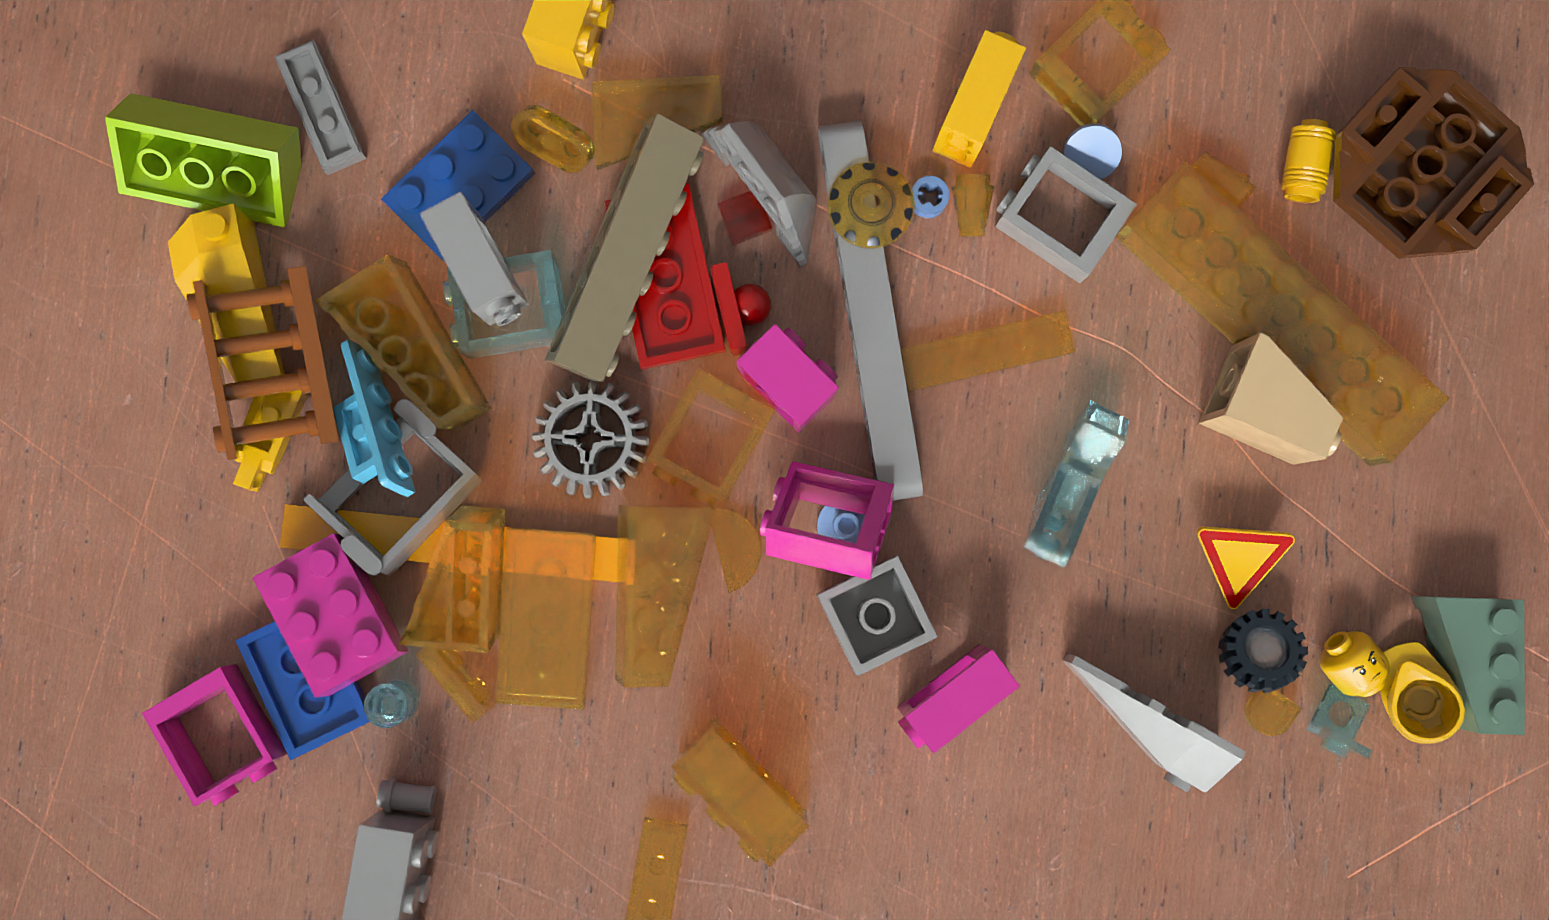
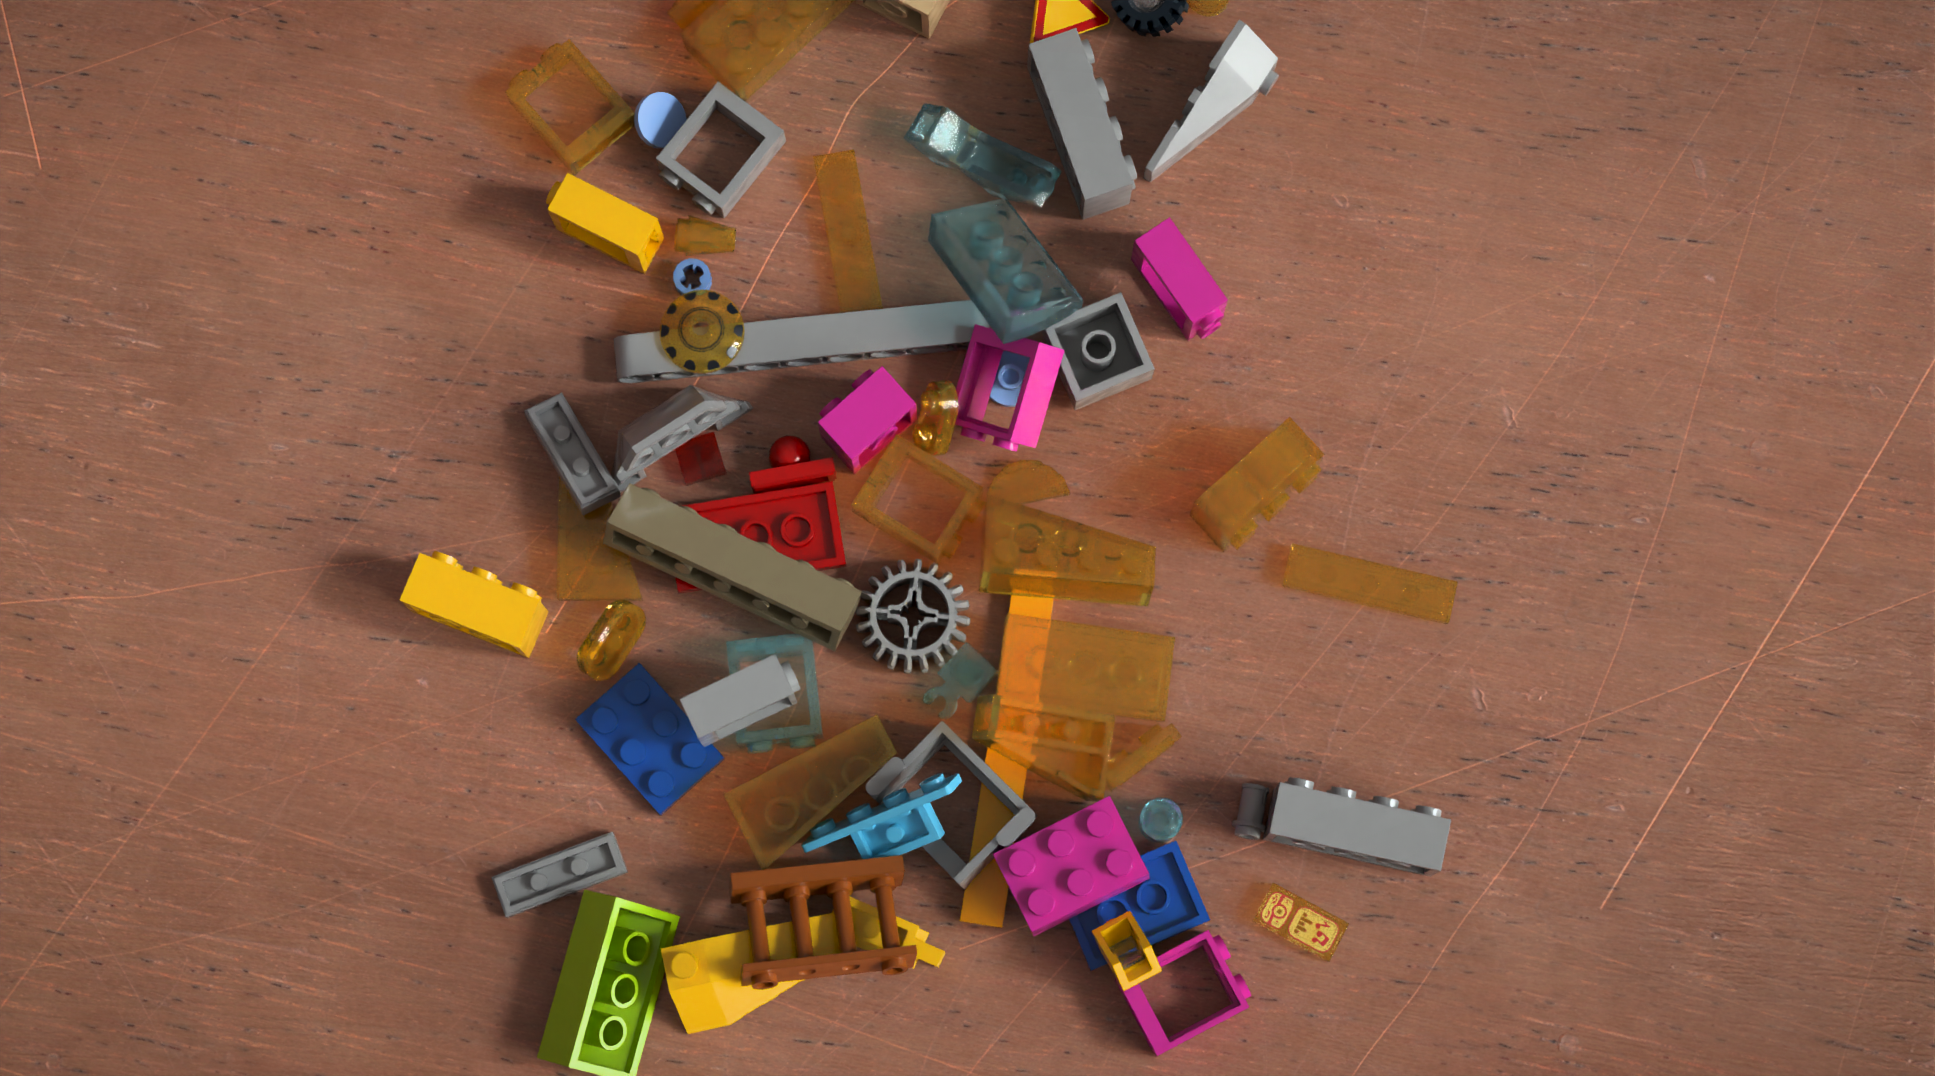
camera: 85 degrees left, 5 degrees down
(243, 675) = (1126, 950): none -> yellow window
(297, 852) = (1300, 922): none -> clear yellow tile
(531, 494) = (965, 676): none -> clear light blue plate
(738, 86) = (572, 453): none -> light grey tile
(794, 450) = (936, 418): none -> clear yellow plate
(953, 512) = (1003, 268): none -> clear light blue slope
(1120, 584) = (1080, 123): none -> light grey brick

